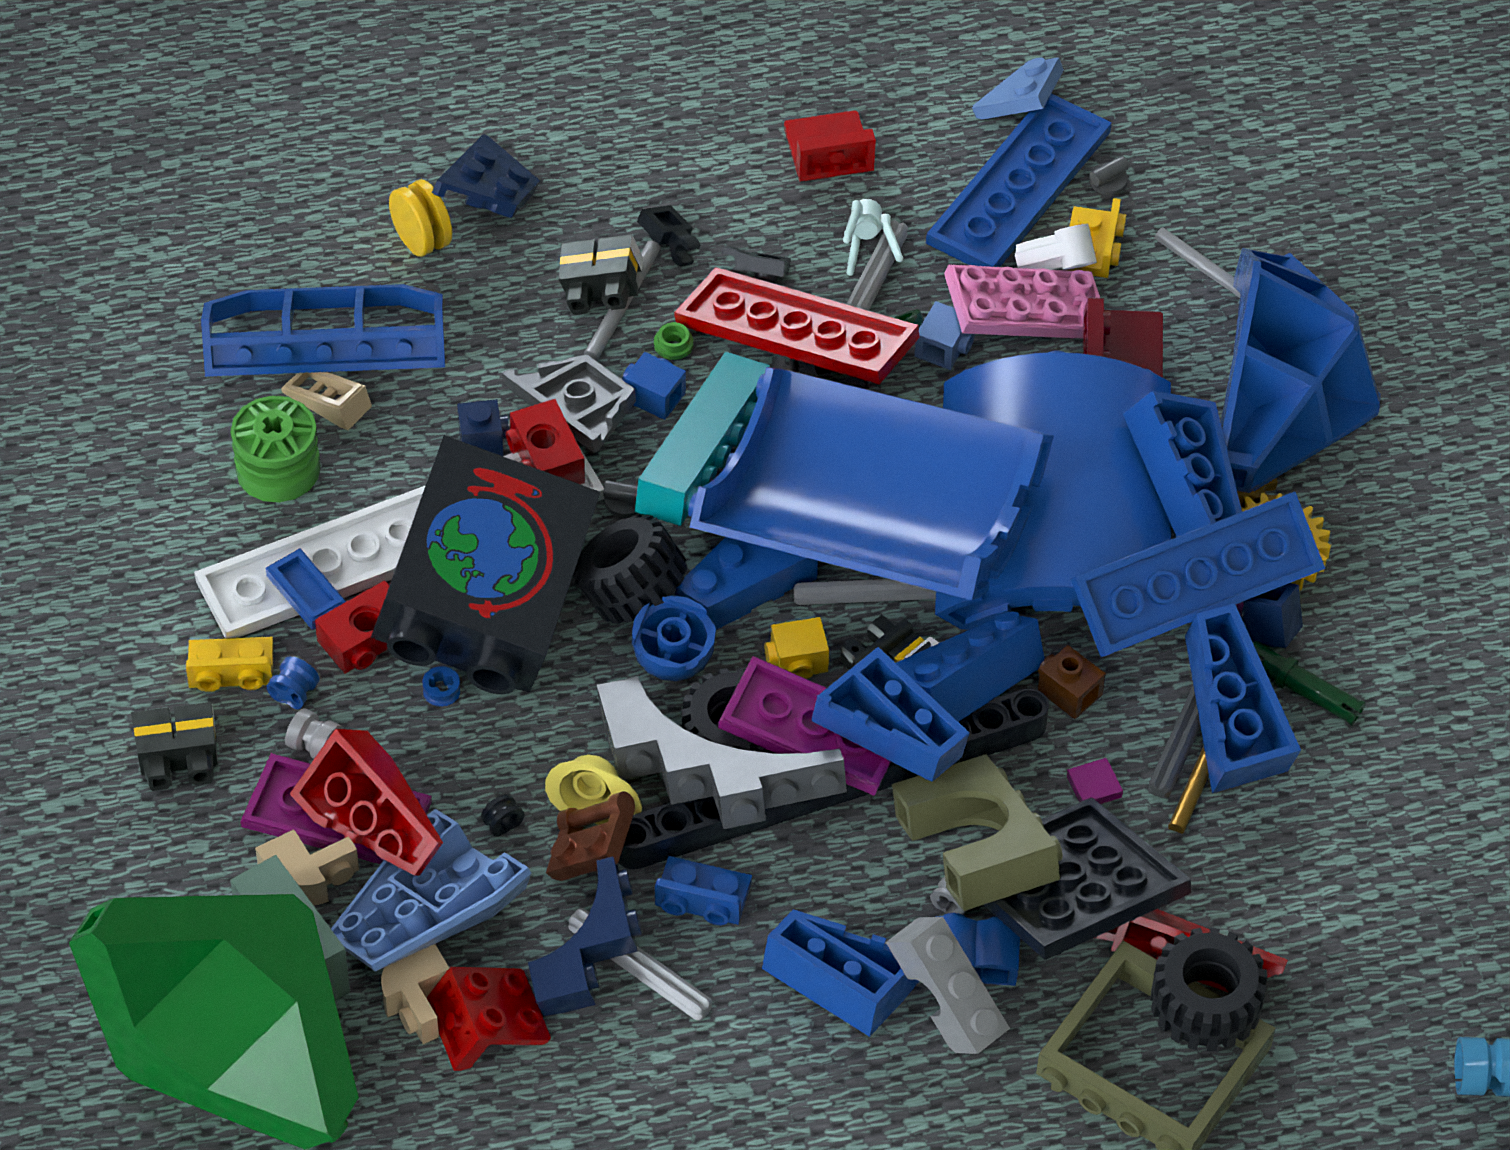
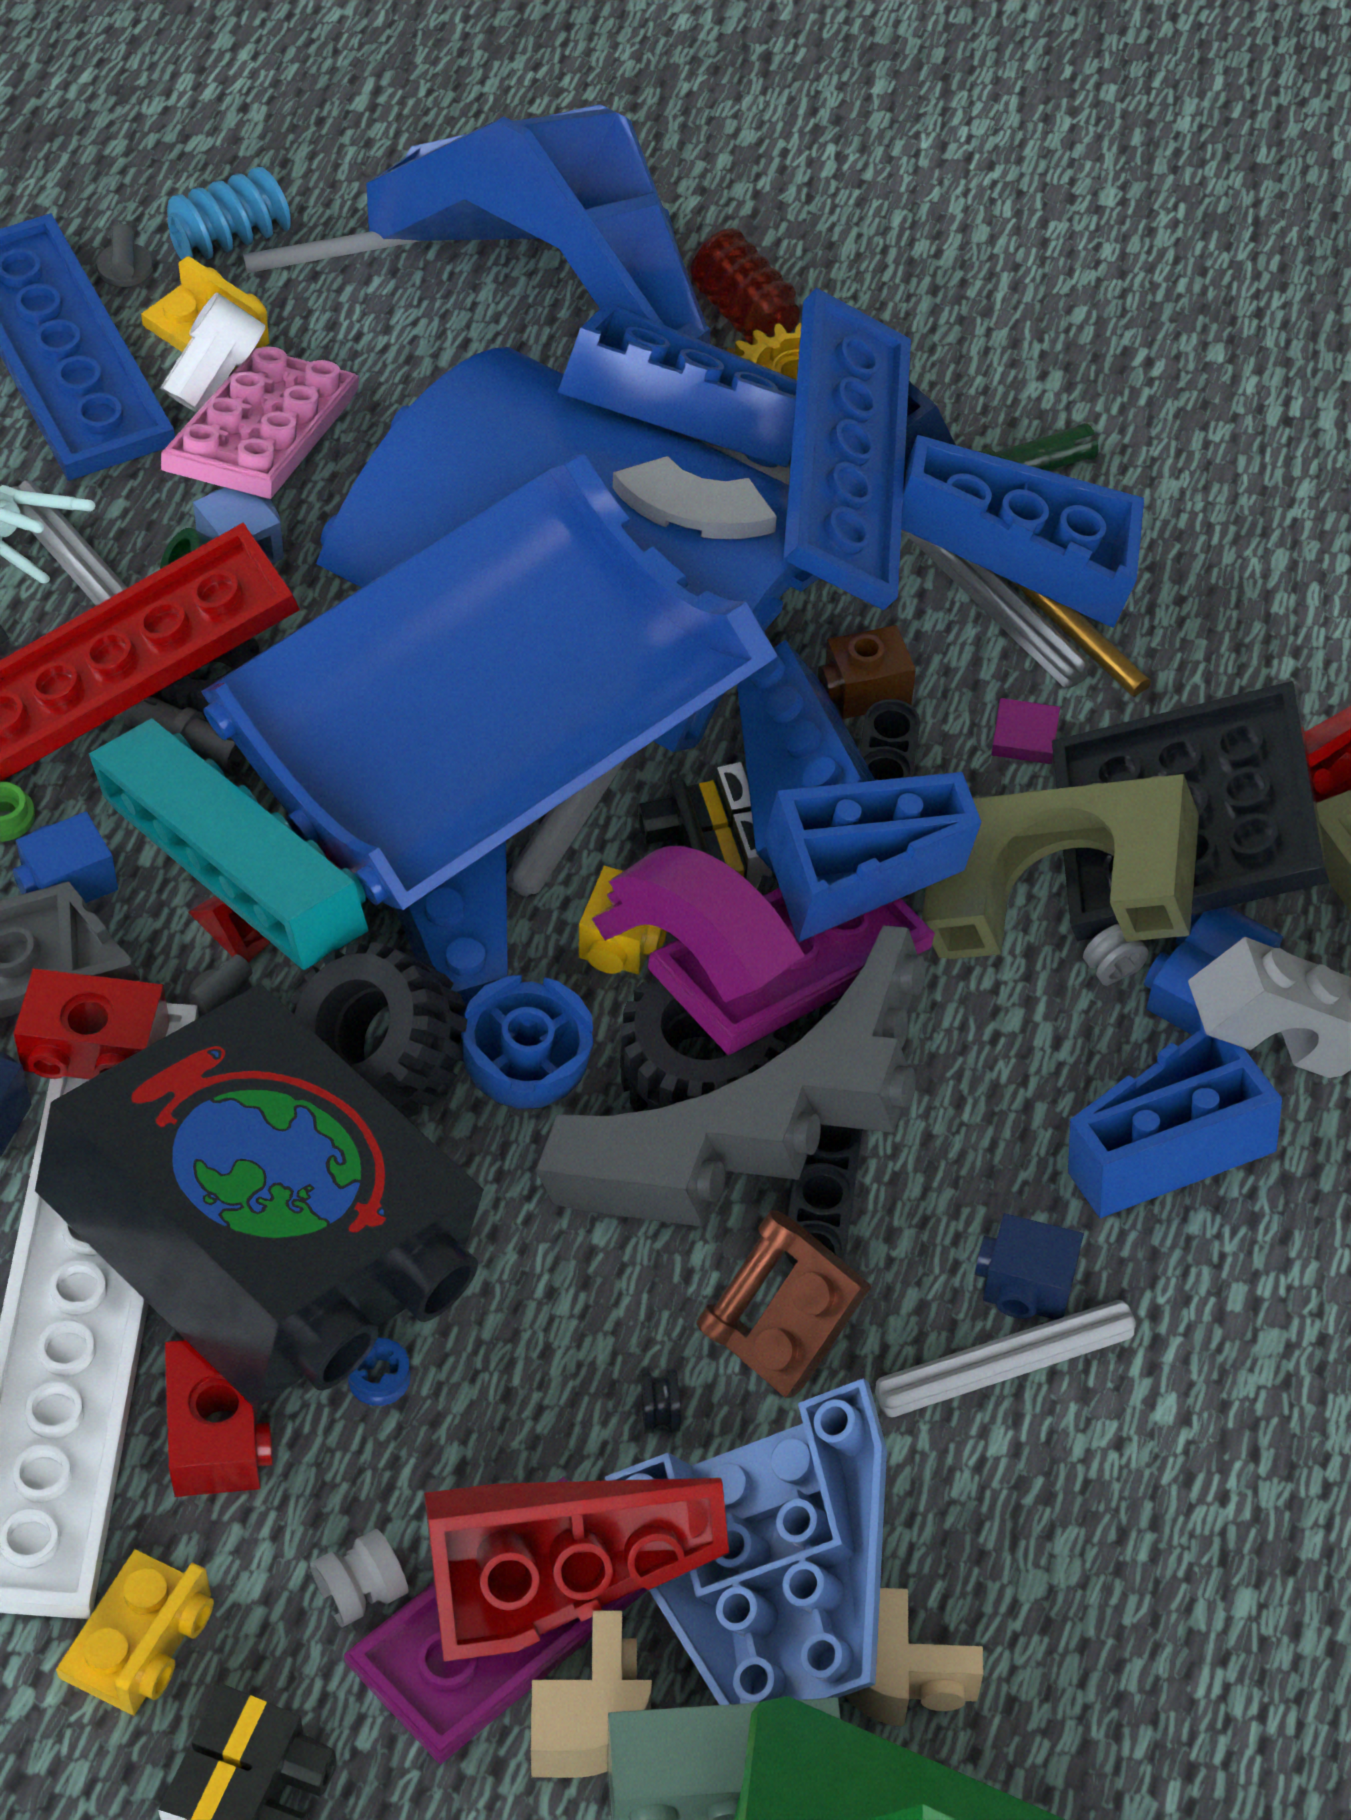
camera: 60 degrees left, 0 degrees up
(293, 682) = (242, 1559): blue wheel -> none
(304, 586) = (95, 1455): blue tile -> none
(485, 1009) = (990, 1588): red bracket -> none
(568, 975) = (960, 1349): dark blue arch -> none
(586, 783) = (694, 1262): light yellow piece -> none
(699, 946) = (1029, 1267): none -> dark blue brick
(702, 891) = (931, 1224): blue bracket -> none
(778, 662) = (709, 911): none -> magenta arch
(1085, 518) = (673, 495): none -> light grey tile
(1124, 335) = (391, 363): dark red bracket -> none
(1177, 202) = (226, 211): none -> dark azure piece
(1334, 476) = (744, 285): none -> clear red piece

